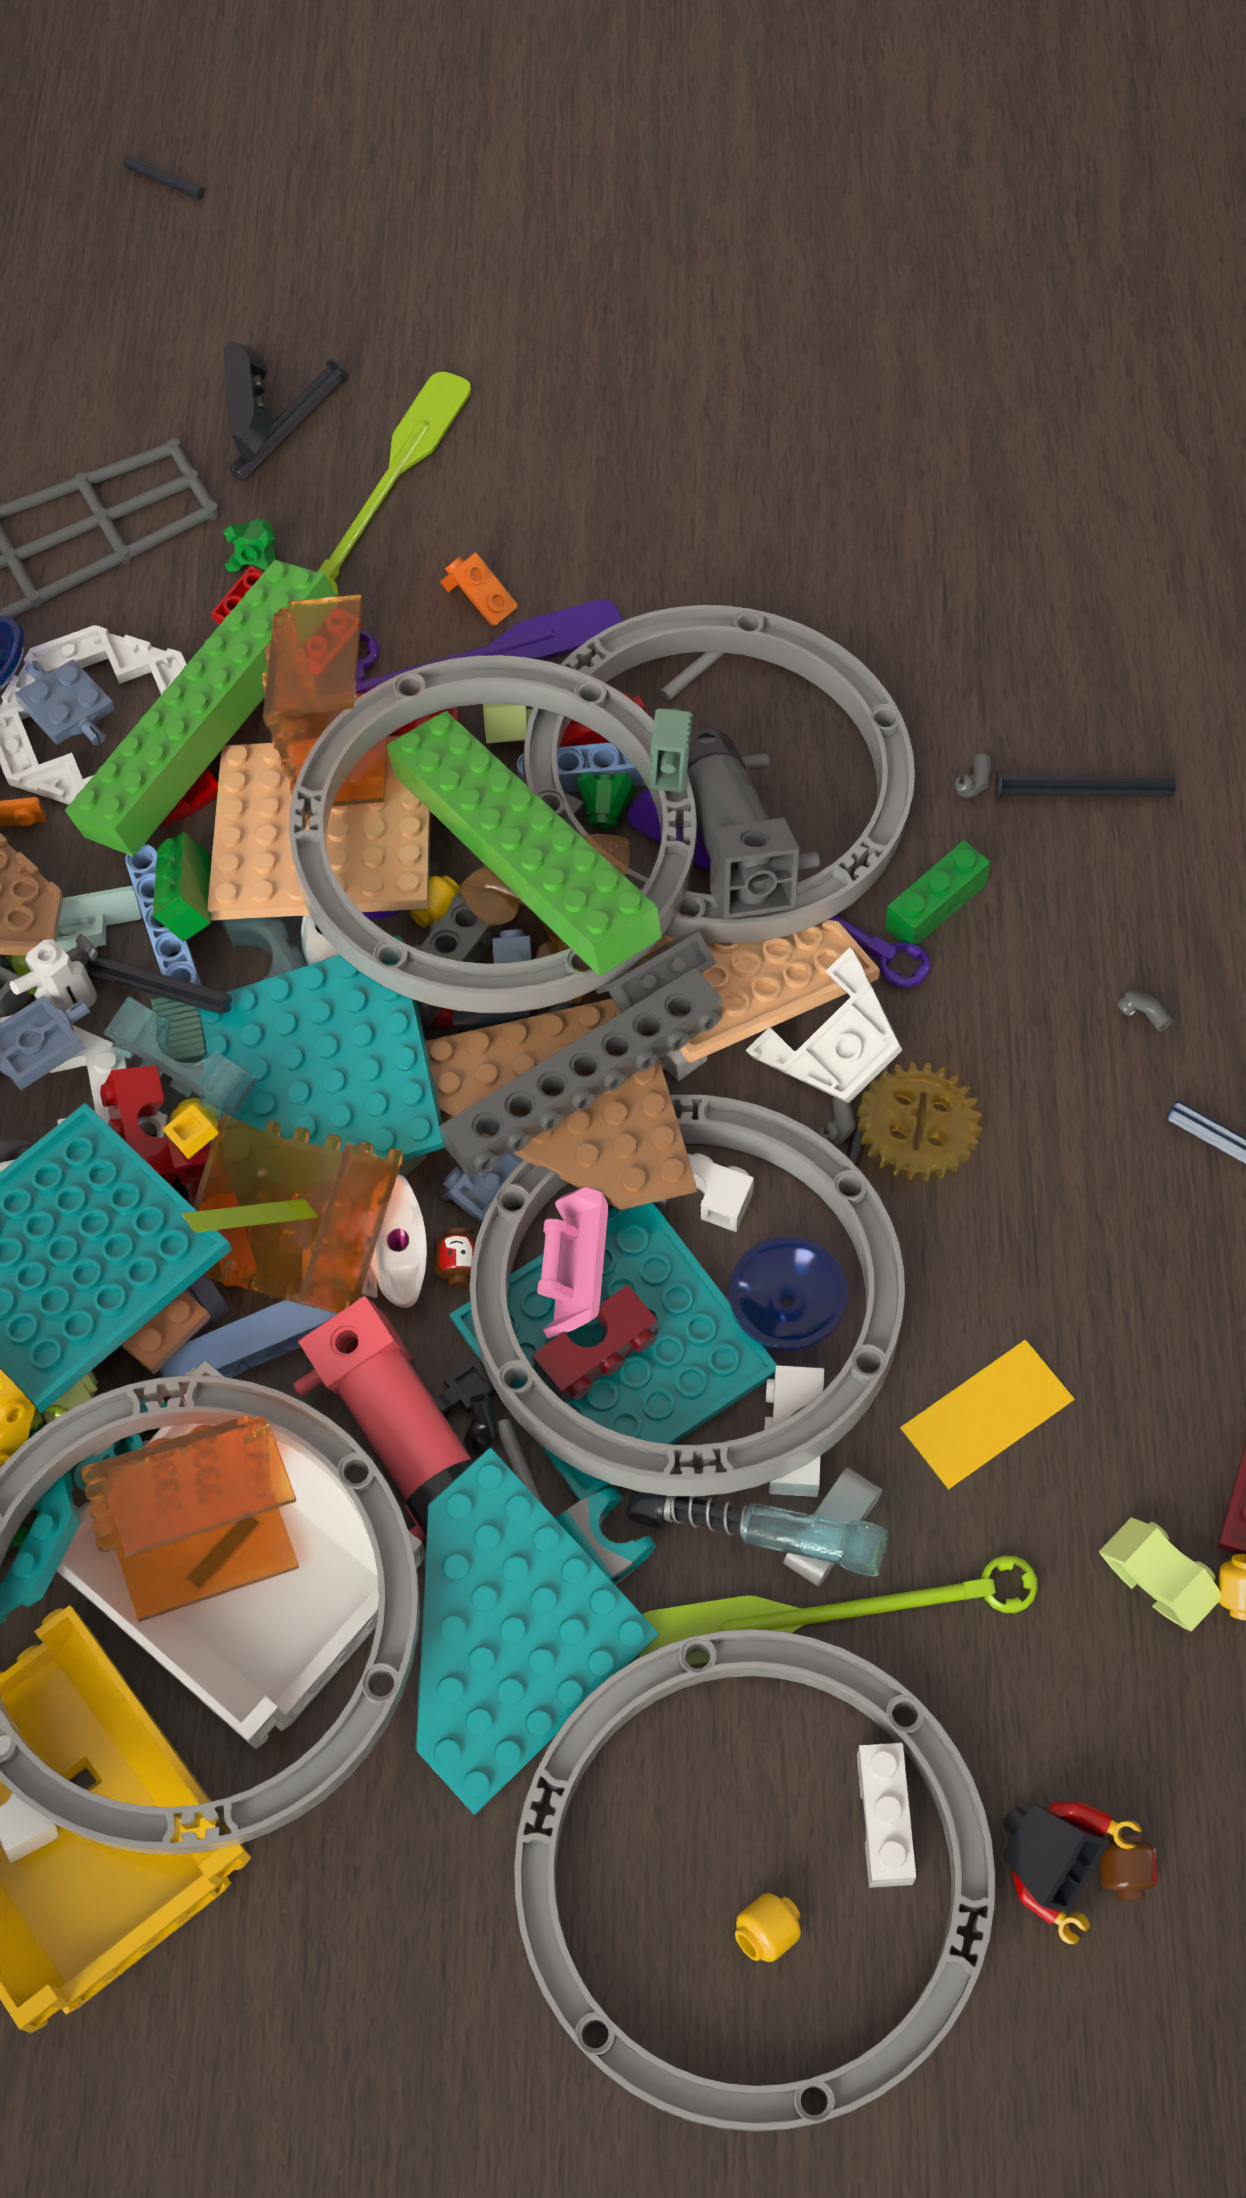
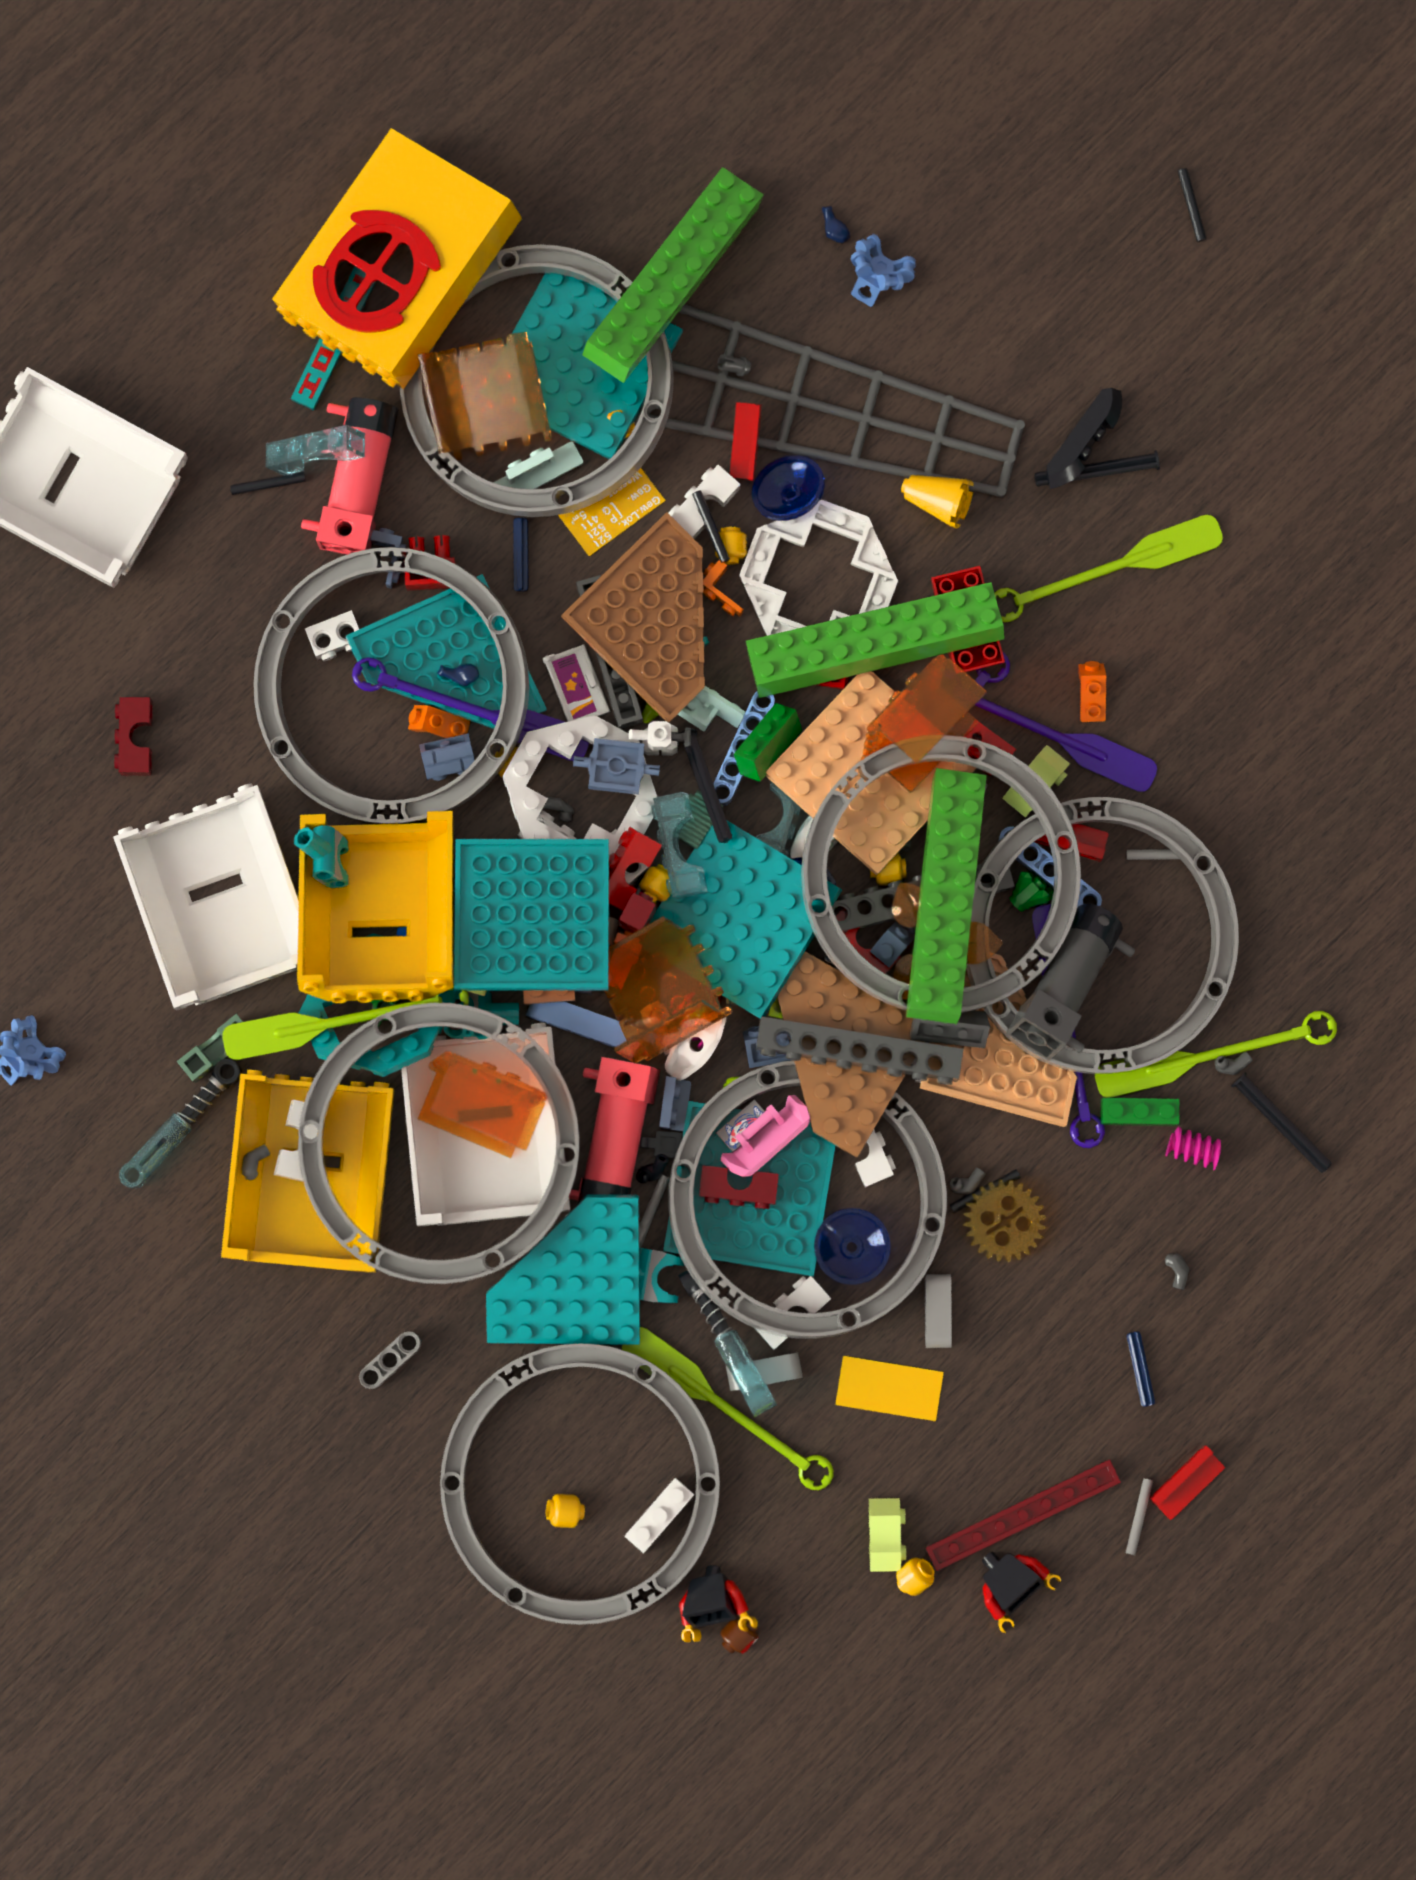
camera: 40 degrees right, 20 degrees up
(65, 702) = (808, 558): sand blue plate -> none
(150, 551) = (939, 496): none -> yellow cone
(190, 1131) = (641, 911): yellow plate -> none
(249, 1215) = (633, 977): lime sticker -> none
(252, 545) = (997, 544): green rock -> none
(380, 1976) = (378, 1365): none -> light grey beam
(435, 1332) = (675, 1104): none -> sand blue bracket
(454, 1256) = (719, 1074): head -> none
(528, 1303) = (739, 1124): none -> tile
(670, 750) = (1060, 926): sand green brick -> none
(846, 1048) = (1007, 1152): white wing -> none
(923, 826) = (1180, 1062): none -> lime piece
(952, 1277) = (938, 1311): none -> light grey beam
(1029, 874) = (1194, 1147): none -> dark pink piece

